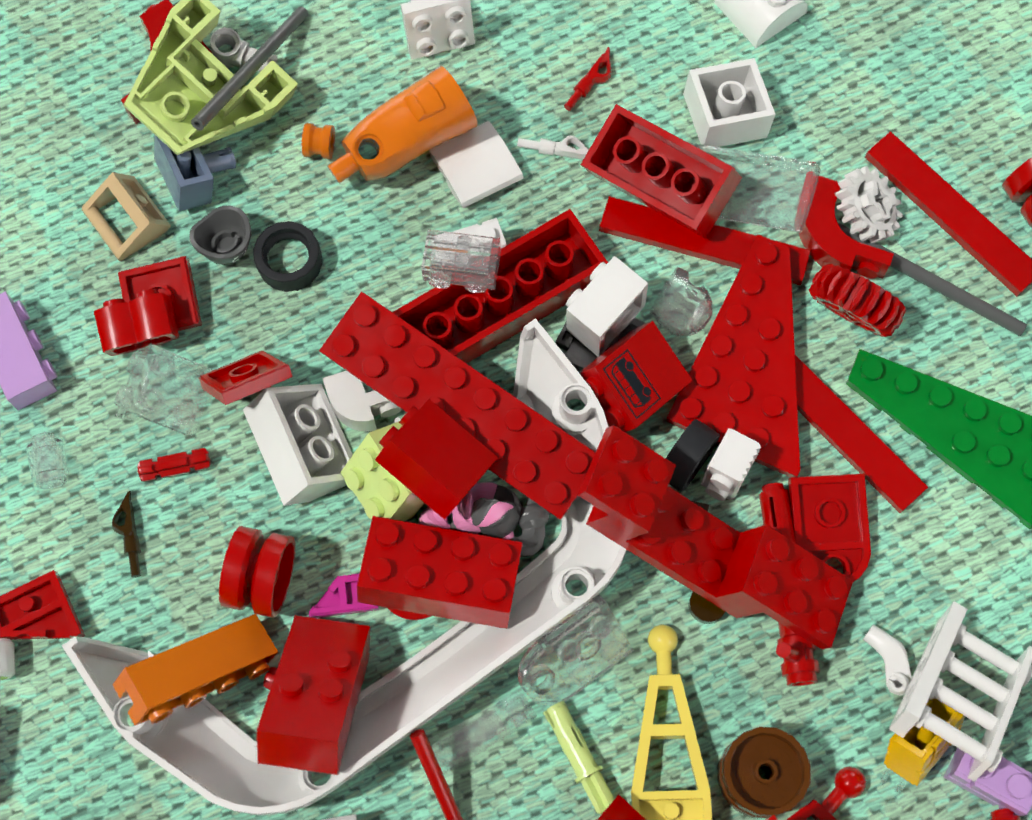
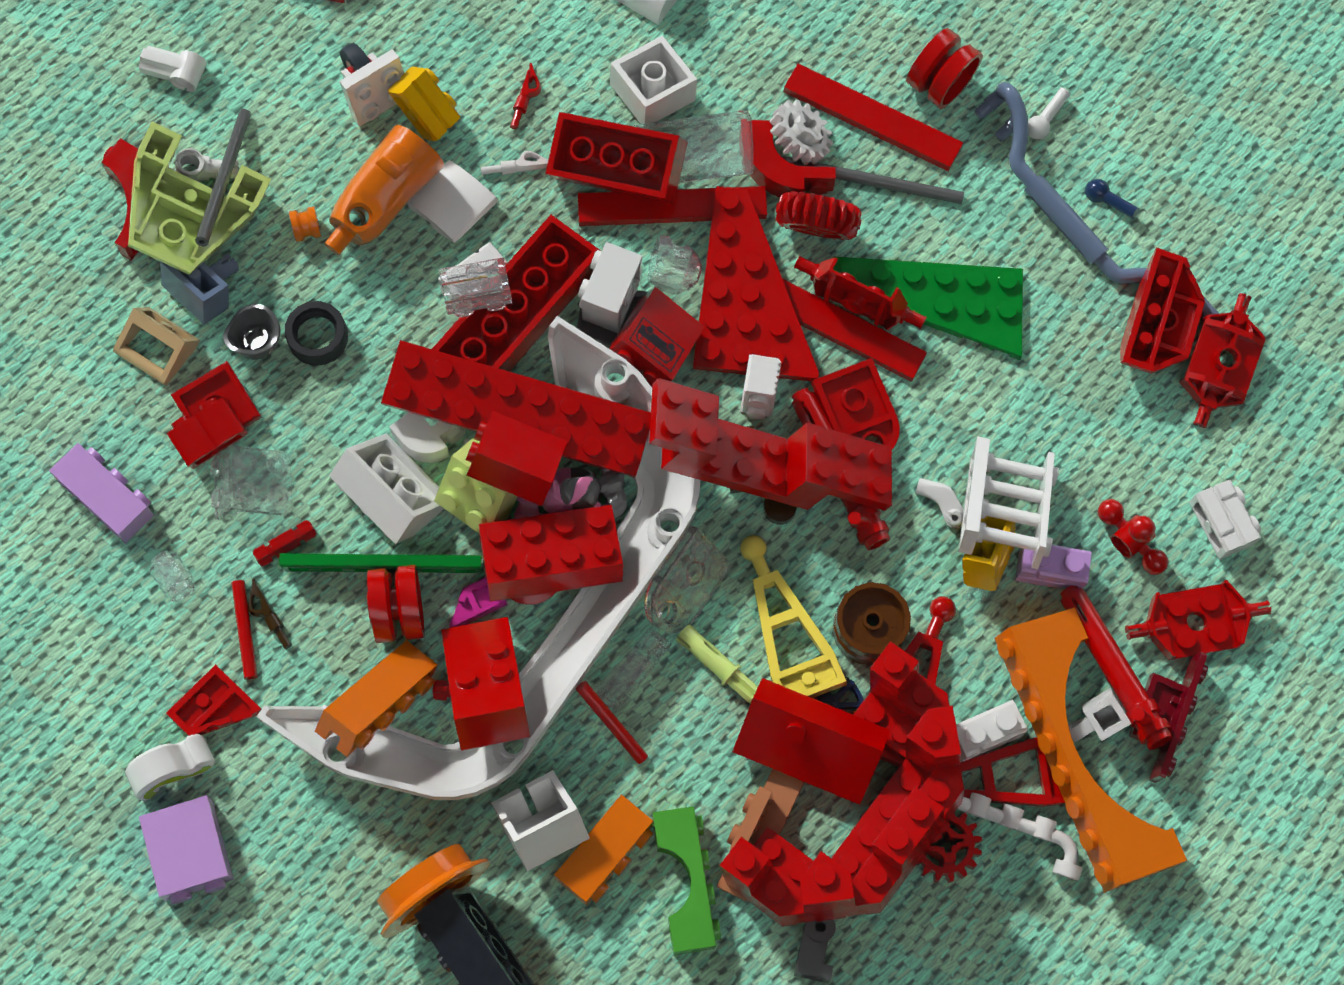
camera: 25 degrees left, 0 degrees up
(99, 542) = (244, 630): none -> red piece
(245, 377) = (322, 447): red plate -> none
(260, 519) = (390, 562): none -> green tile
(482, 53) = (424, 103): none -> yellow brick
(691, 453) = (725, 384): black tyre -> none
(871, 403) = (857, 297): none -> red plate

